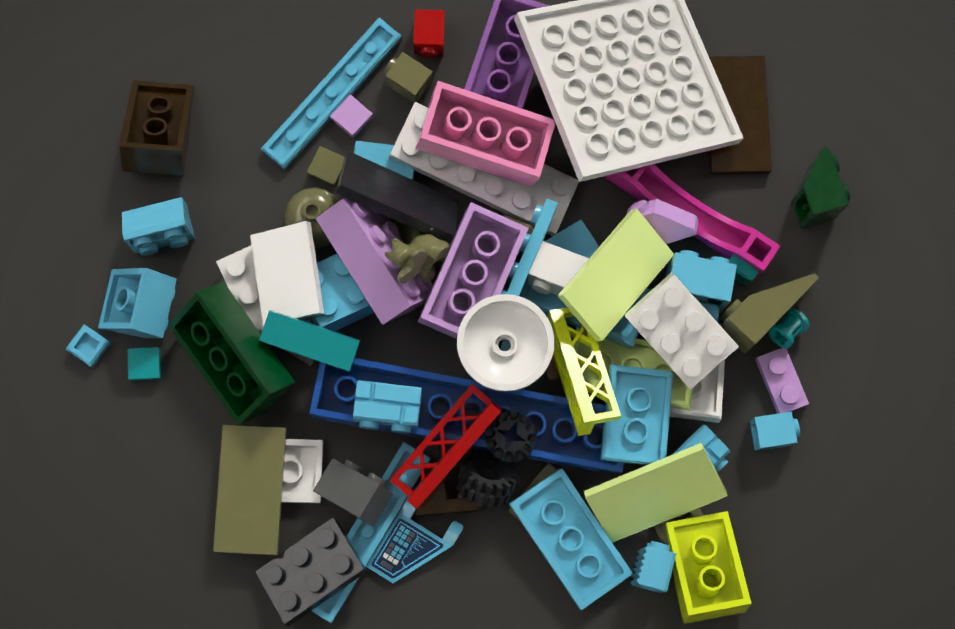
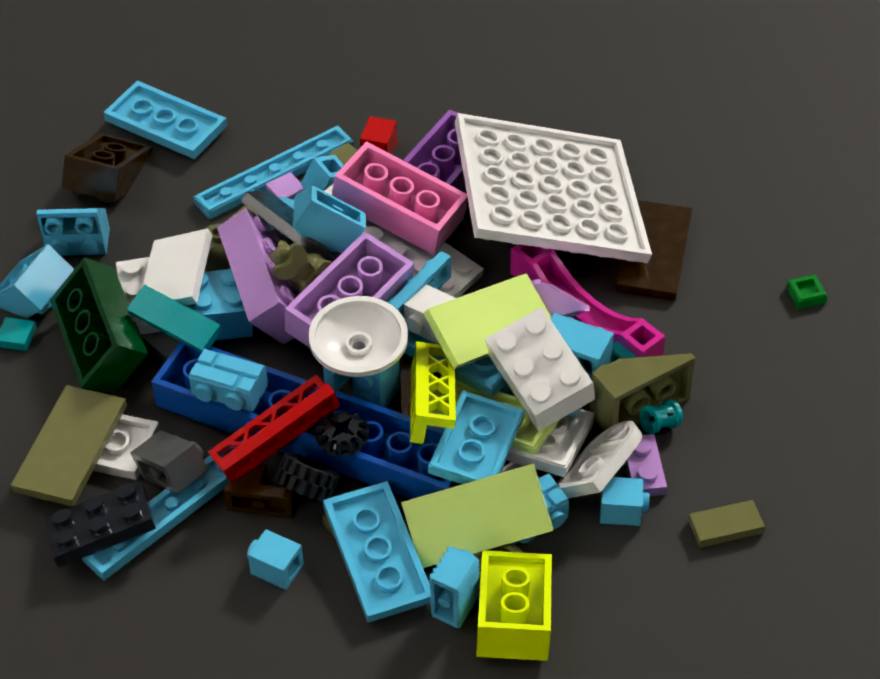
camera: 20 degrees right, 30 degrees down
(195, 48) = (165, 119): none -> medium azure plate
(393, 104) = (322, 172): none -> medium azure brick
(409, 546) = (212, 529): flag -> none
(427, 193) = (327, 219): none -> medium azure slope
(480, 568) = (275, 559): none -> medium azure brick
(749, 396) = (601, 460): none -> white tile
(821, 192) = (718, 309): dark green slope -> none
(867, 429) = (726, 523): none -> olive tile
(892, 137) = (806, 291): none -> green tile

